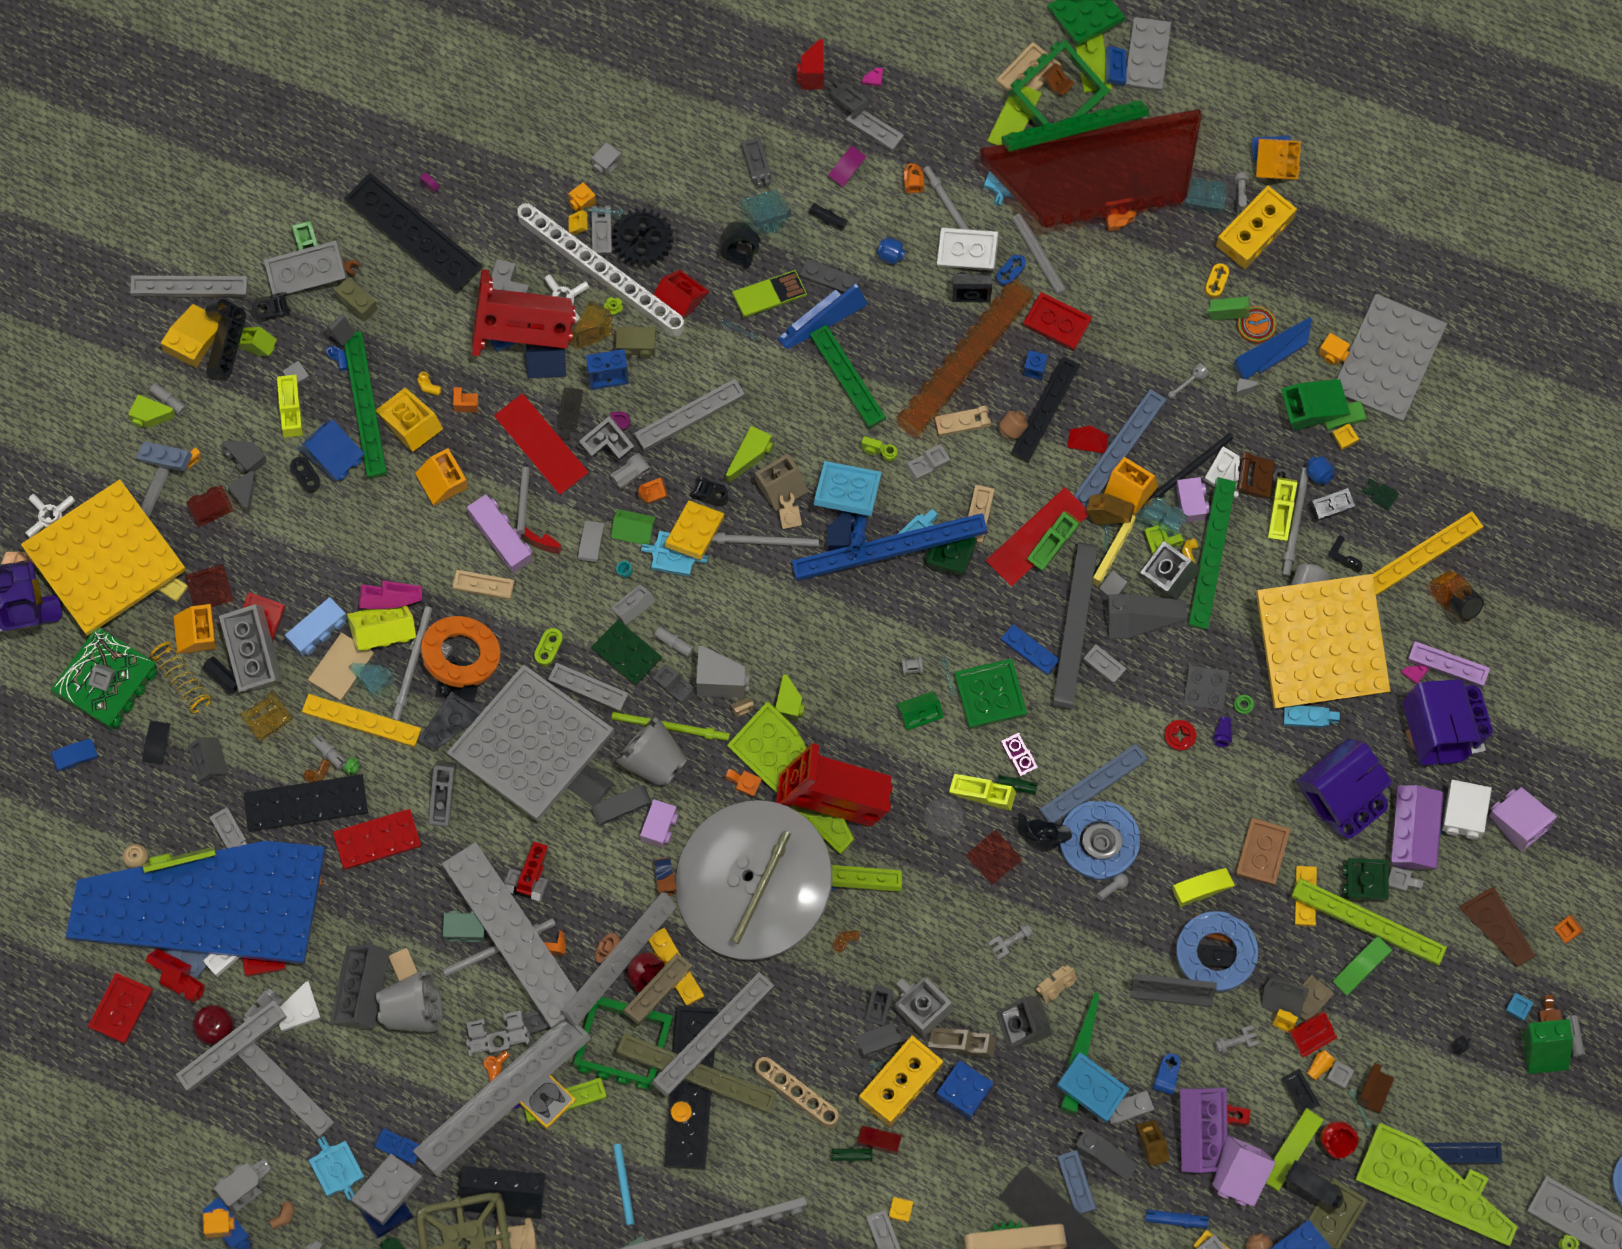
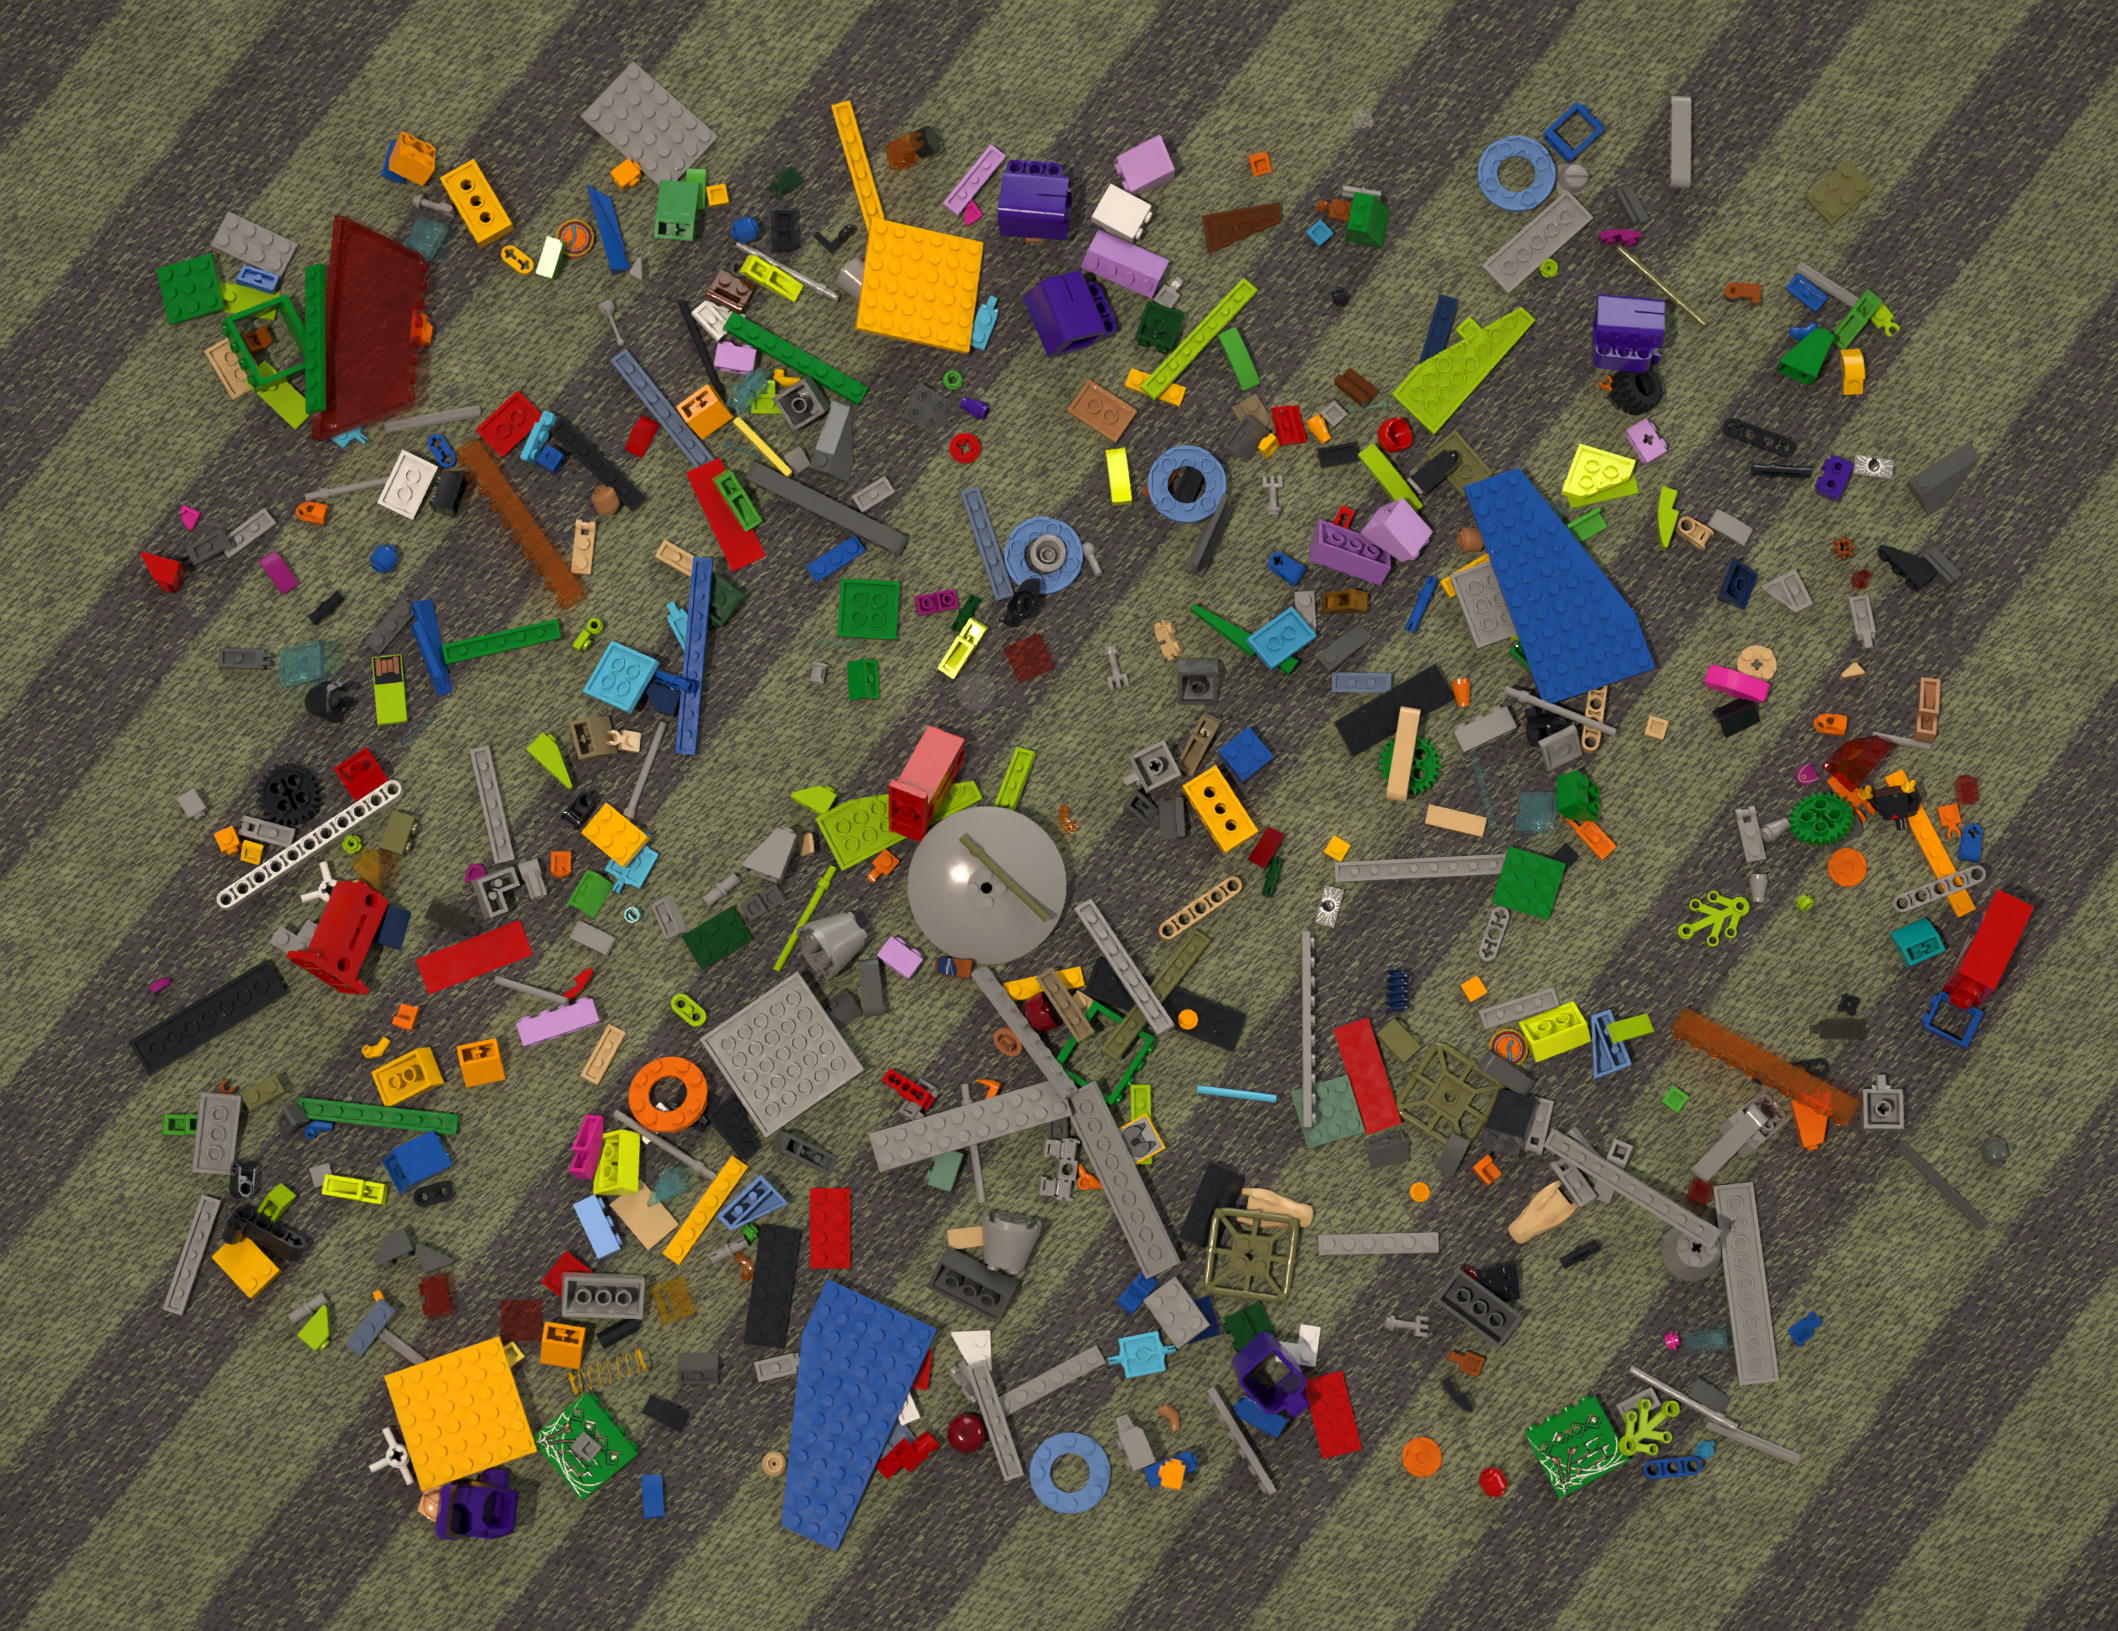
camera: 75 degrees left, 10 degrees up
(120, 1008) = (922, 1517): red plate -> none
(166, 860) = (794, 1422): lime piece -> none
(215, 1160) = (1069, 1502): none -> medium blue plate
(380, 758) = (752, 1202): none -> medium blue wedge
(588, 687) = (741, 984): light grey plate -> none
(599, 374) = (423, 861): blue window -> none
(620, 211) = (255, 807): clear light blue hinge -> none
(668, 1006) = (1082, 1001): none -> tan plate
(840, 1219) = (1329, 906): none -> tile
(928, 462) = (615, 593): light grey slope -> none
(1053, 347) = (538, 437): none -> medium azure hinge
(1109, 509) = (723, 438): pearl gold slope -> none

